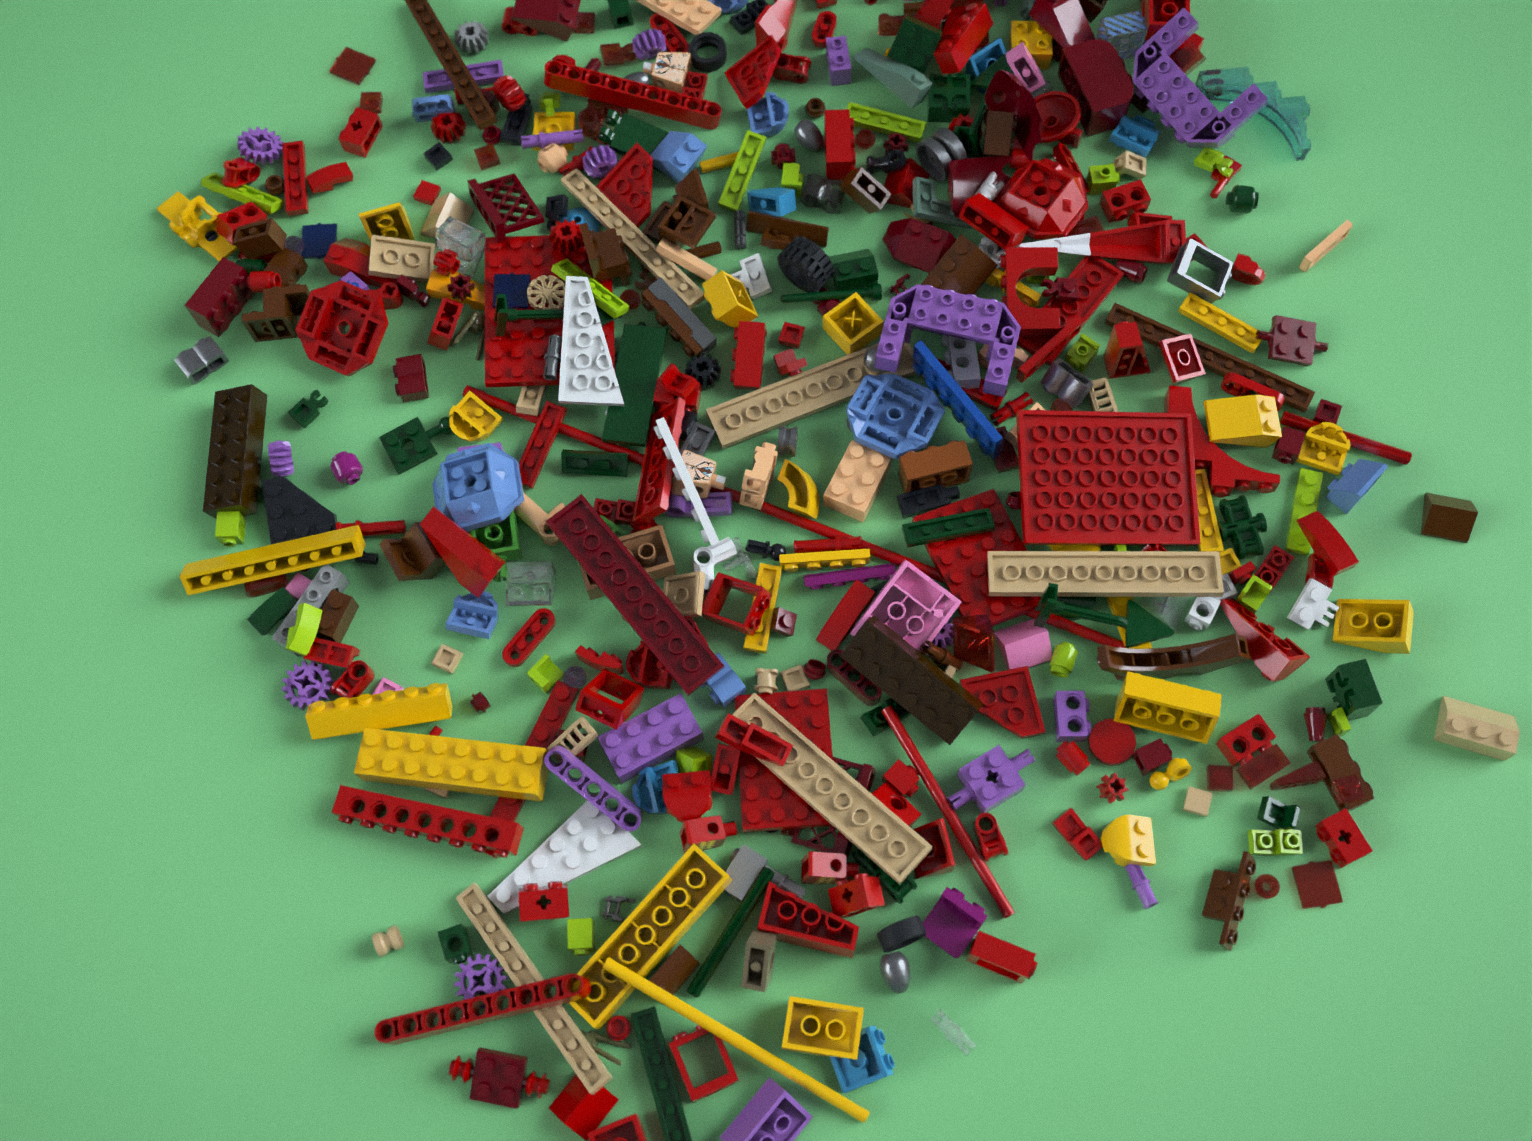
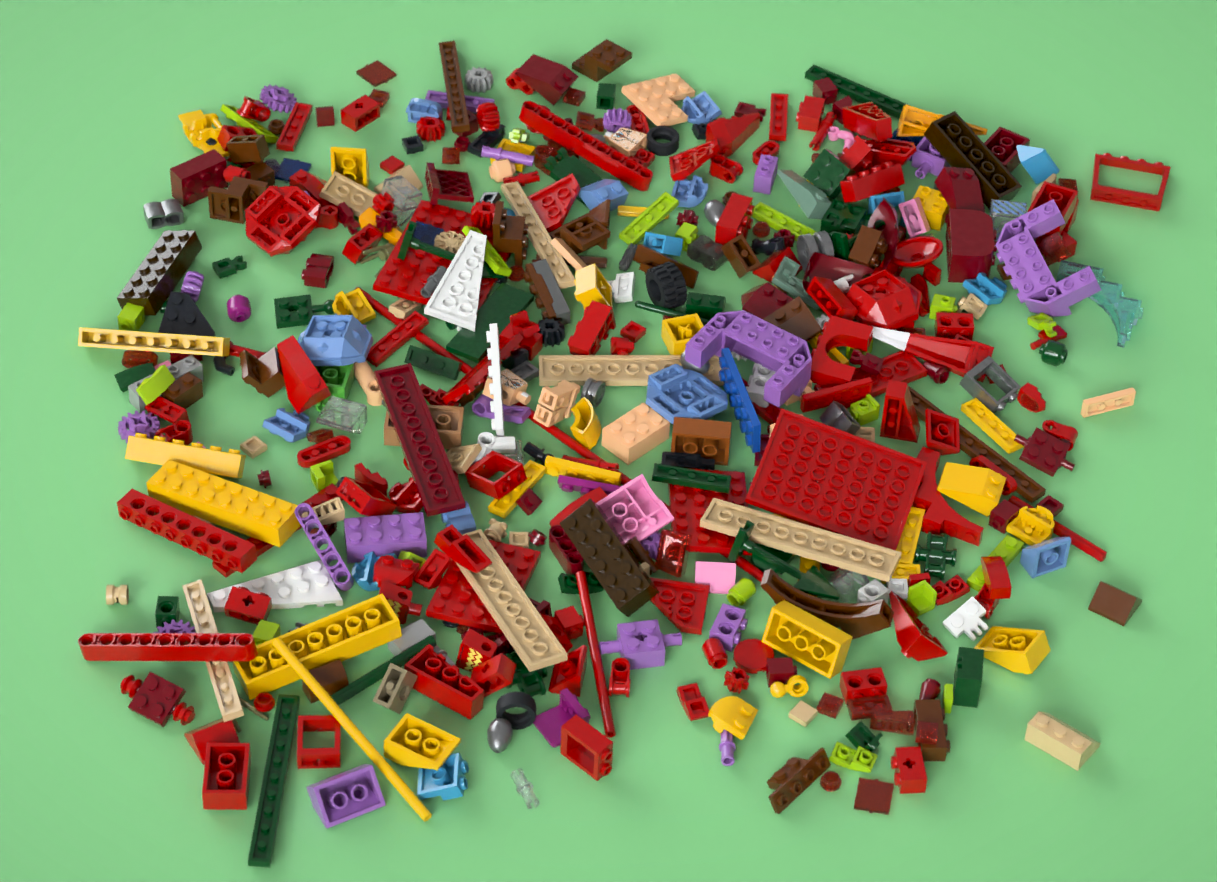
camera: 15 degrees right, 25 degrees down
(323, 150) = (324, 116): none -> dark red brick
(324, 178) = (317, 132): red slope -> none
(515, 617) = (320, 435): none -> clear red plate
(599, 161) = (537, 180): medium lavender gear -> none
(1296, 308) = (1064, 433): none -> red piece

